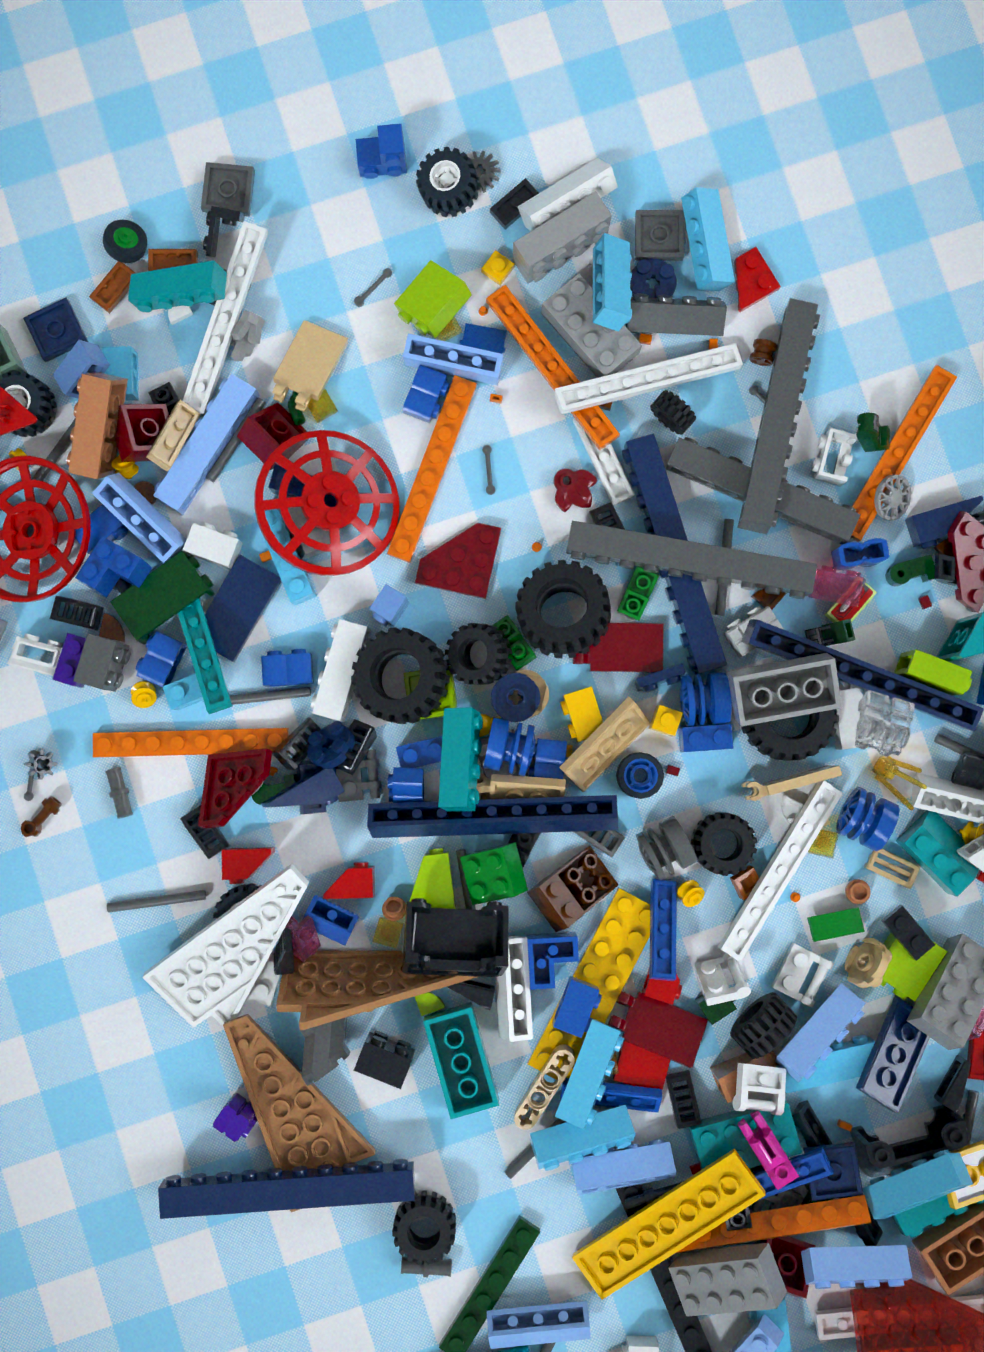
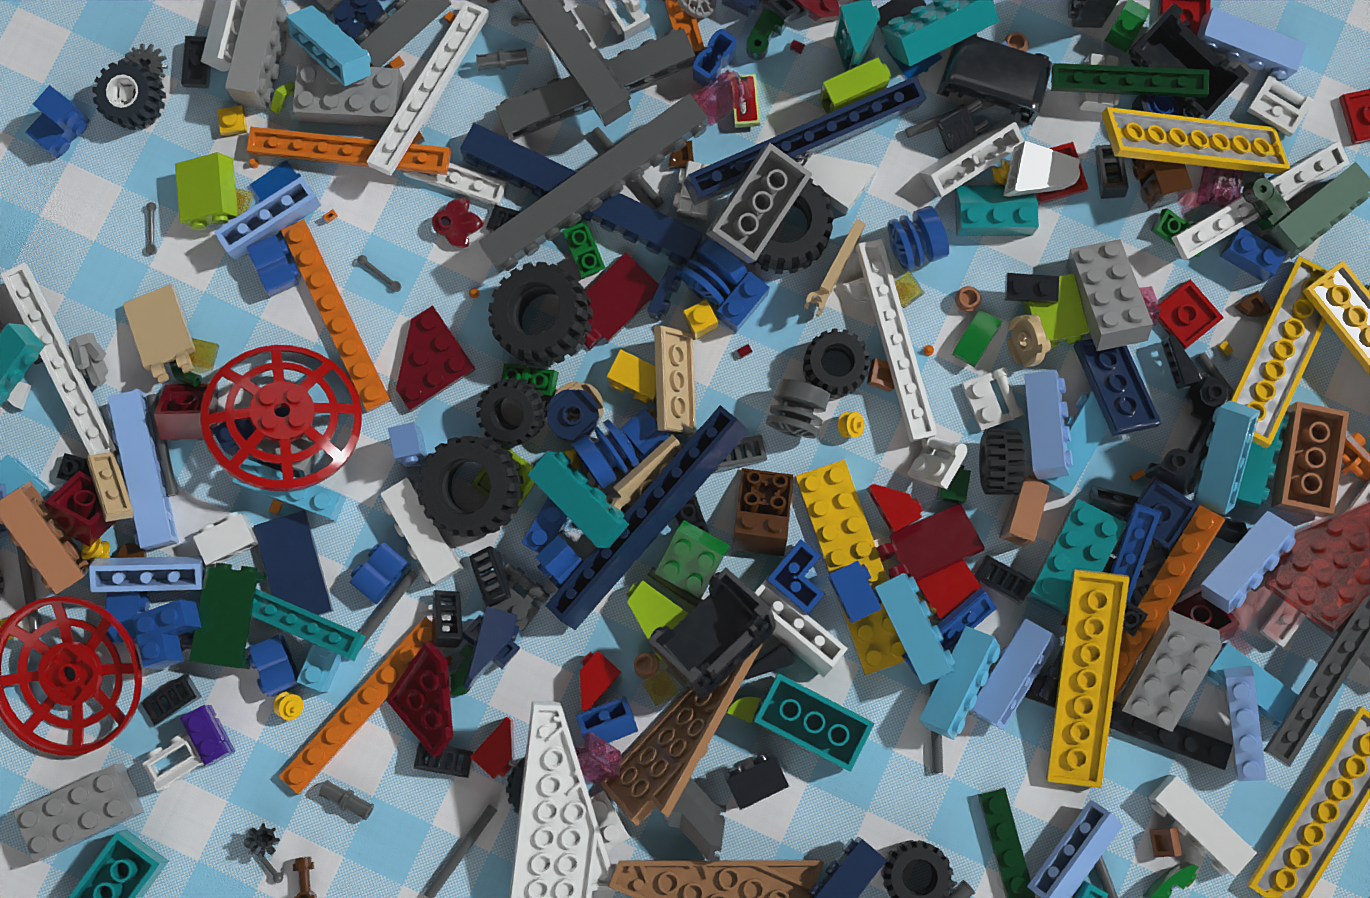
camera: 50 degrees left, 5 degrees down
(102, 663) = (231, 713): dark grey brick -> none
(111, 628) = (211, 683): reddish brown tile -> none
(283, 954) = (598, 780): black slope -> none
(333, 735) = (466, 581): dark blue plate -> none
(546, 283) = (281, 95): none -> lime tile
(546, 1088) = (897, 676): tan beam -> none
(653, 779) = (720, 392): wheel -> none
(663, 930) = (858, 470): blue tile -> none
(673, 412) = (472, 93): black tyre -> none
(717, 407) = (502, 59): none -> dark grey pin
(760, 1079) = (1040, 500): white plate -> none
(768, 1151) = (1098, 544): dark pink plate -> none
(832, 633) = (755, 131): dark green leg -> none
(883, 723) = (856, 158): clear hips -> none
(887, 768) = (895, 189): clear yellow plant -> none
(912, 876) = (993, 249): tan tile -> none

